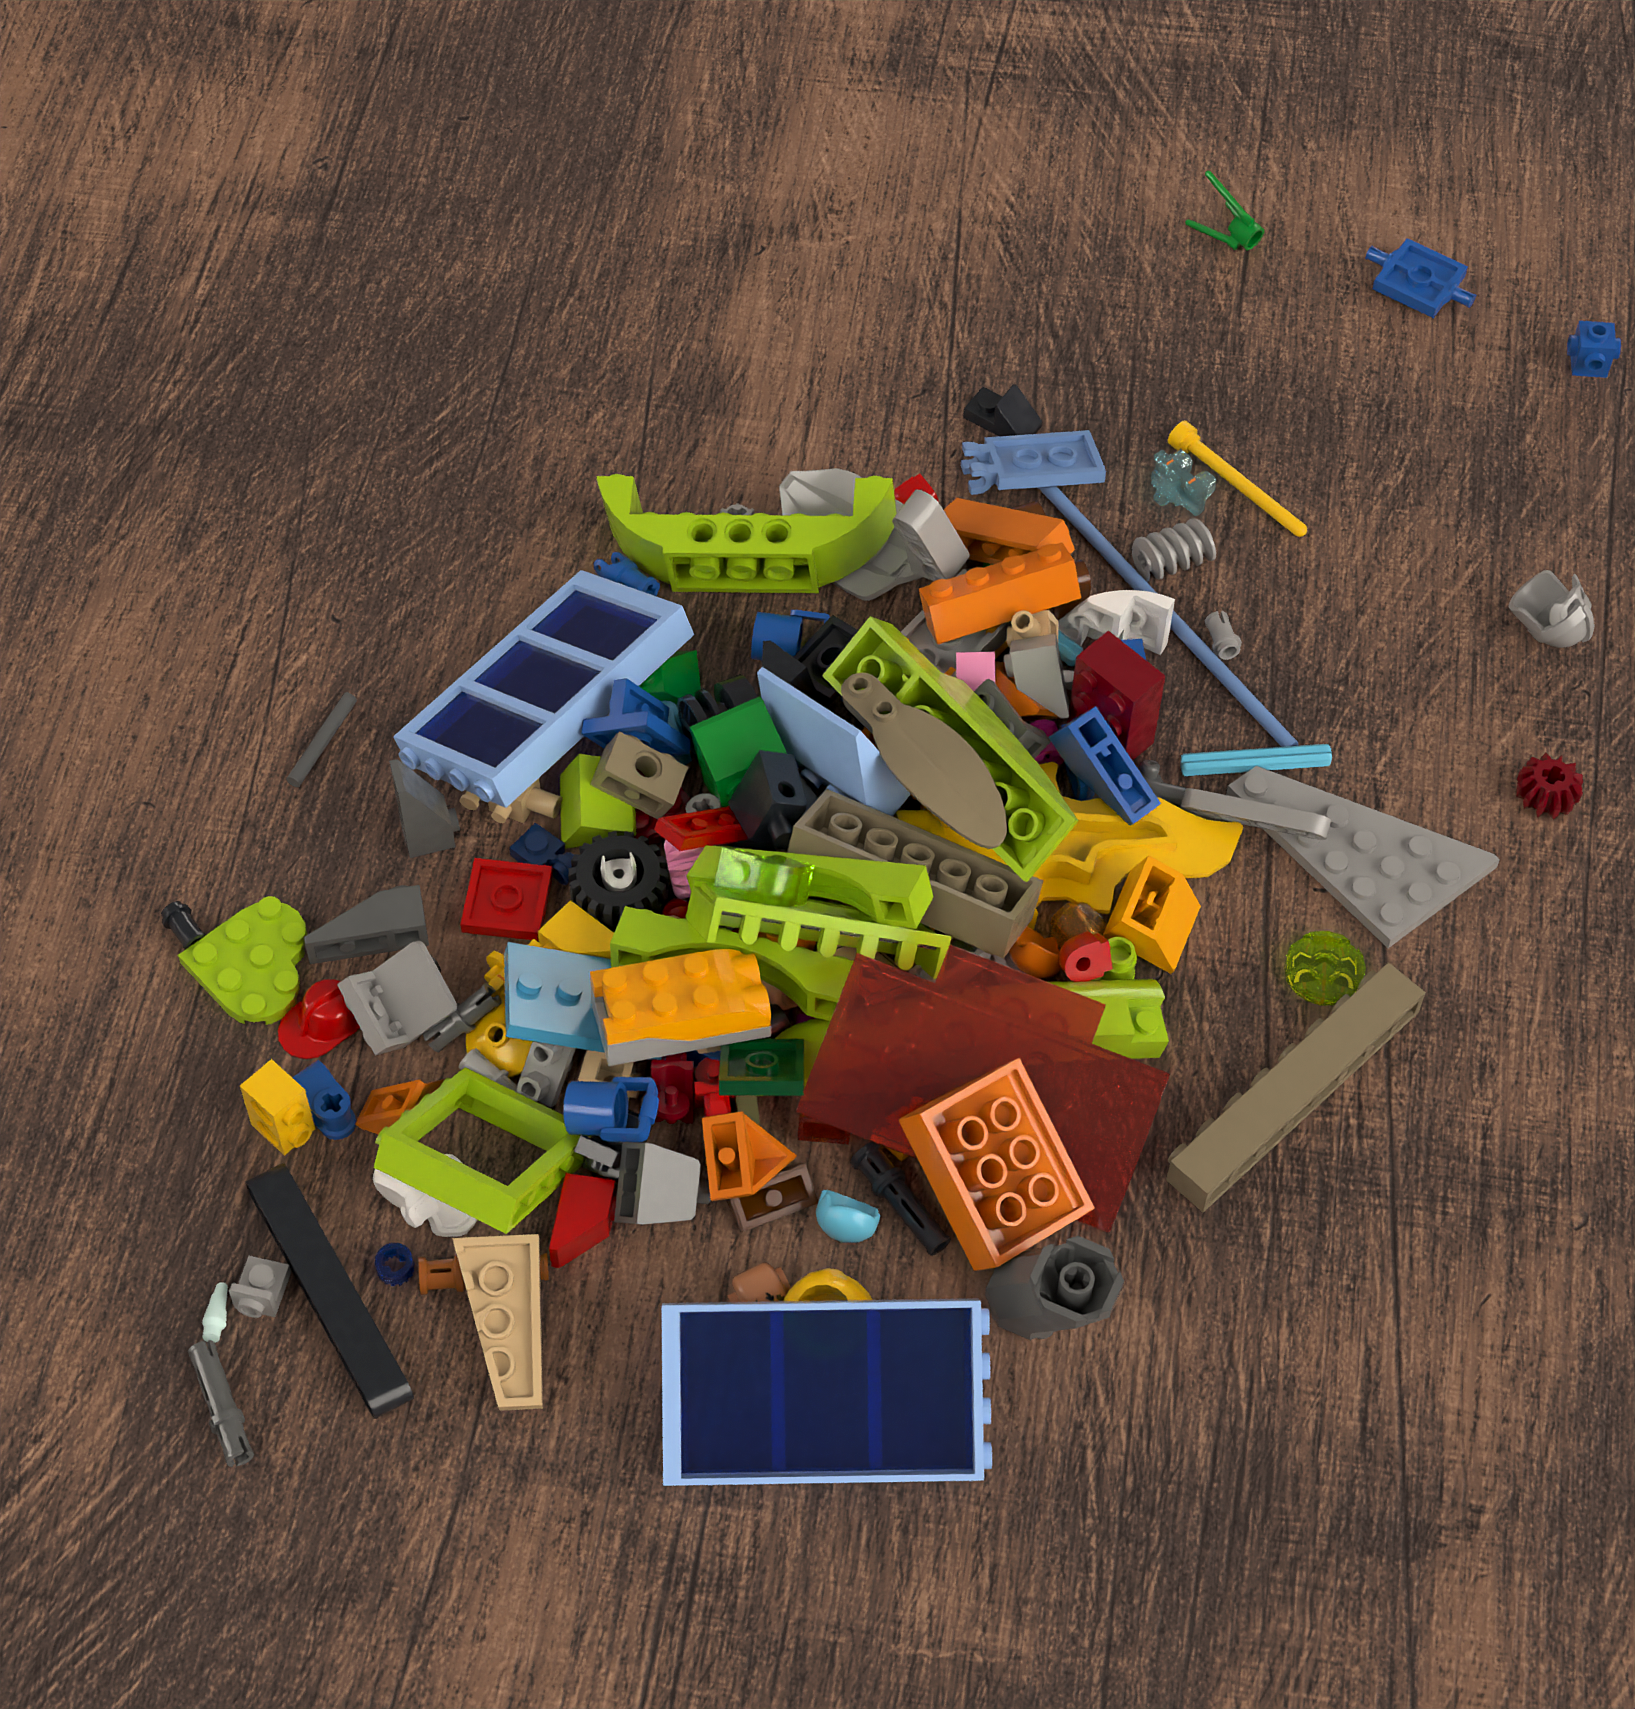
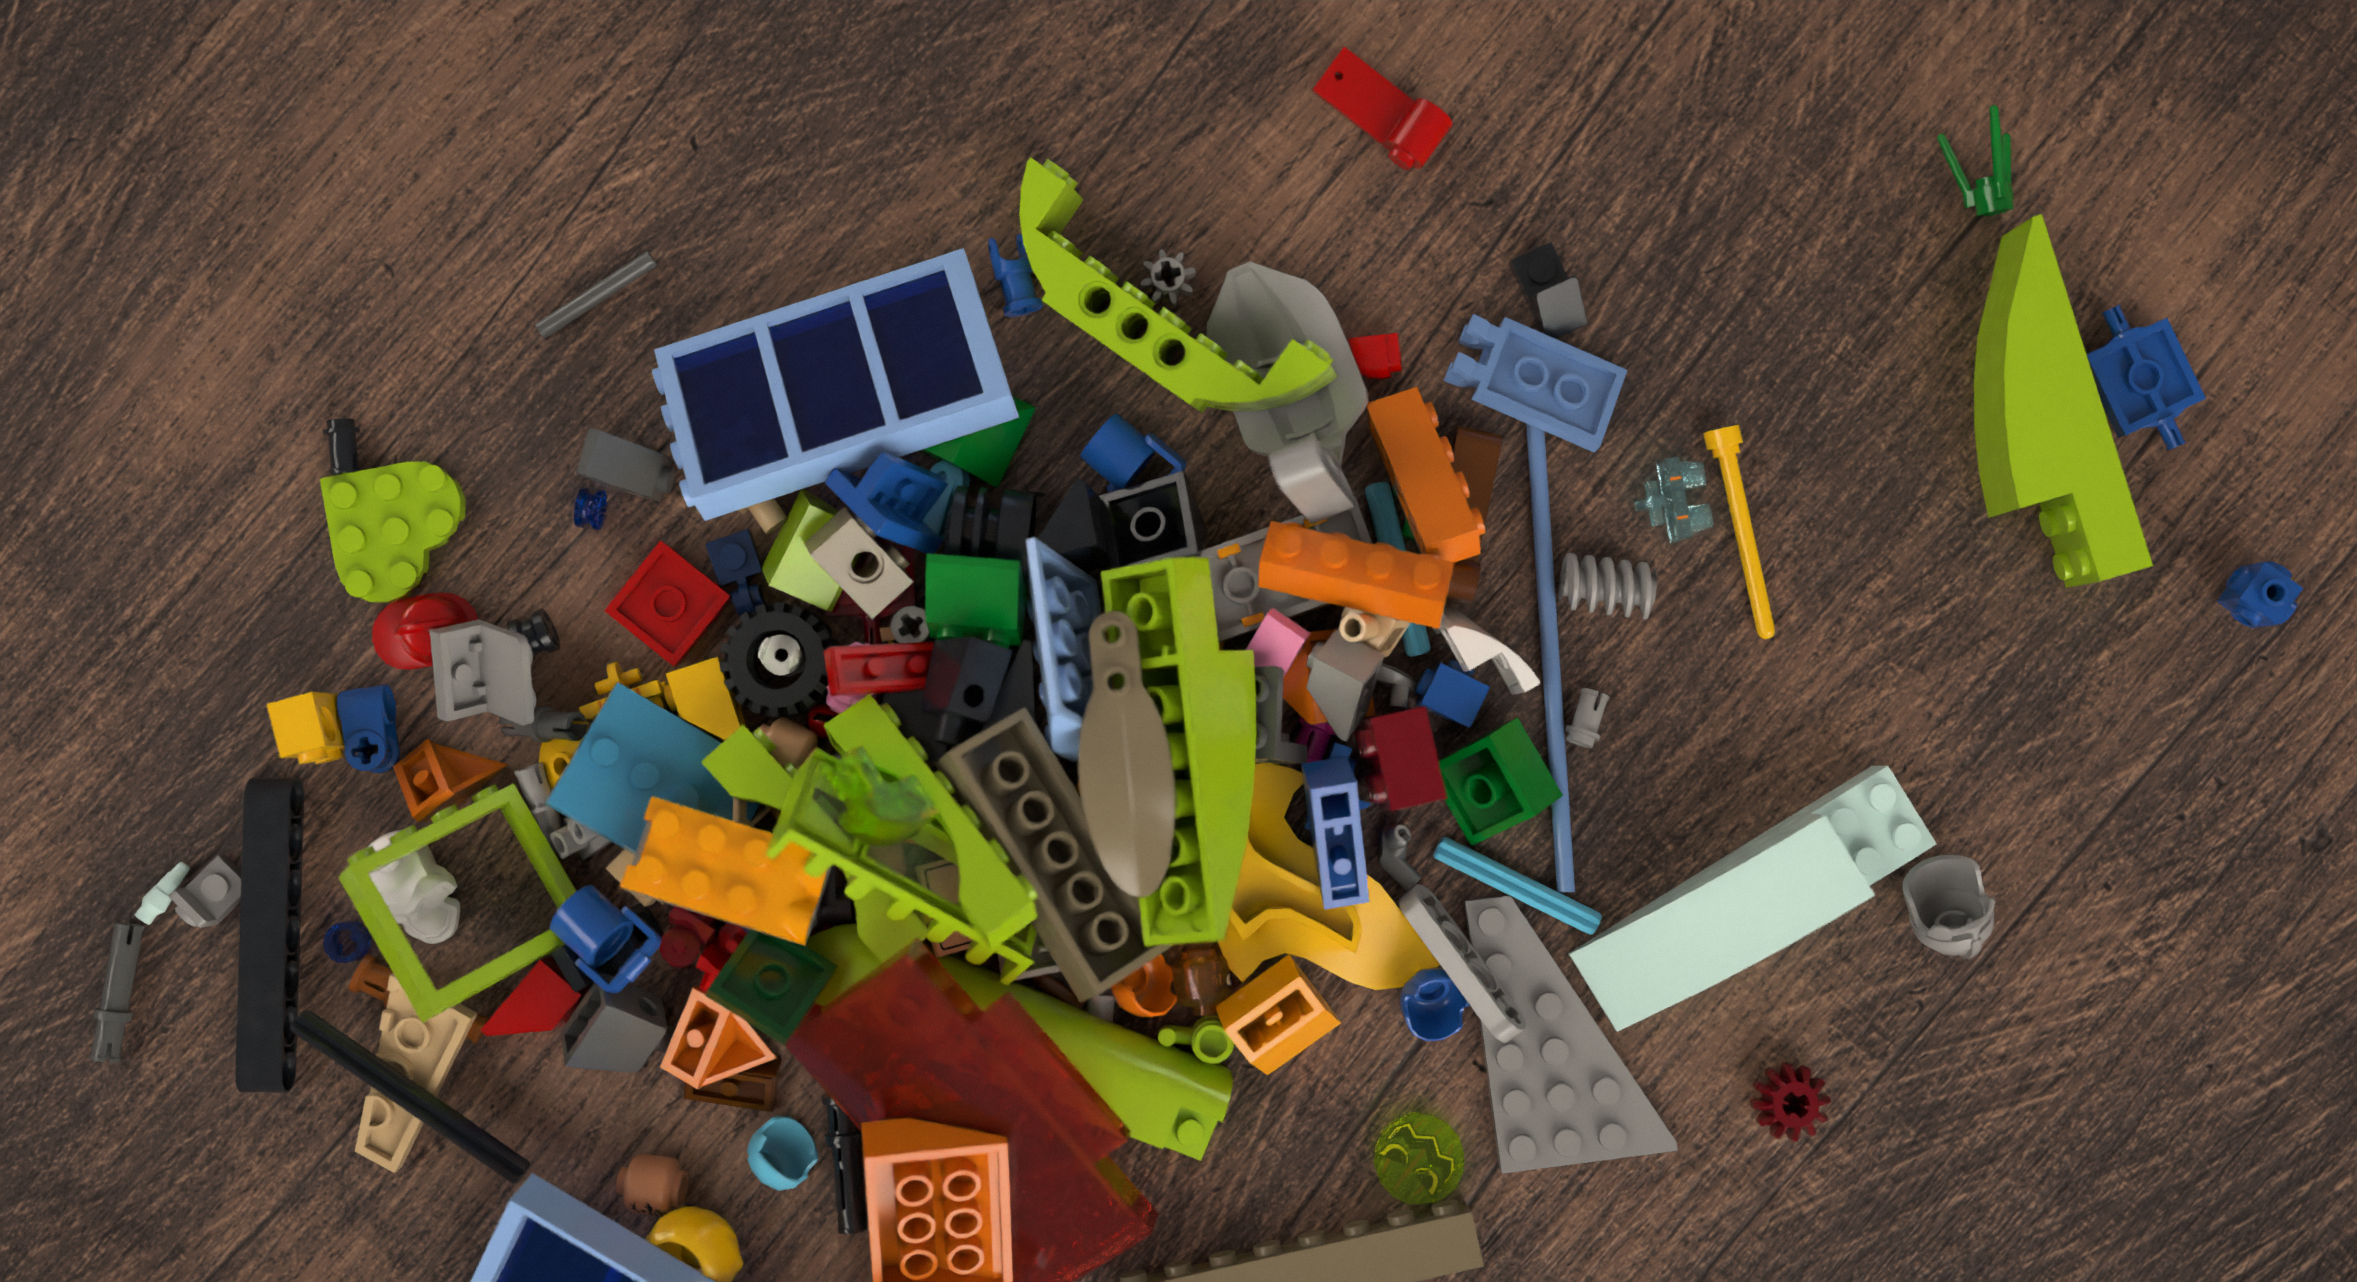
camera: 30 degrees right, 30 degrees up
(375, 926) = (532, 561): dark grey slope -> none
(405, 867) = (589, 509): none -> clear blue bush
(523, 1321) = (410, 1096): none -> black axle
(836, 375) = (1383, 111): none -> red door
(1085, 957) = (1169, 1034): red piece -> none
(1194, 702) = (1496, 782): none -> green slope
(1255, 853) = (1432, 1005): none -> blue hair
(1382, 321) = (2043, 419): none -> lime slope
(1418, 679) = (1755, 899): none -> light aqua slope

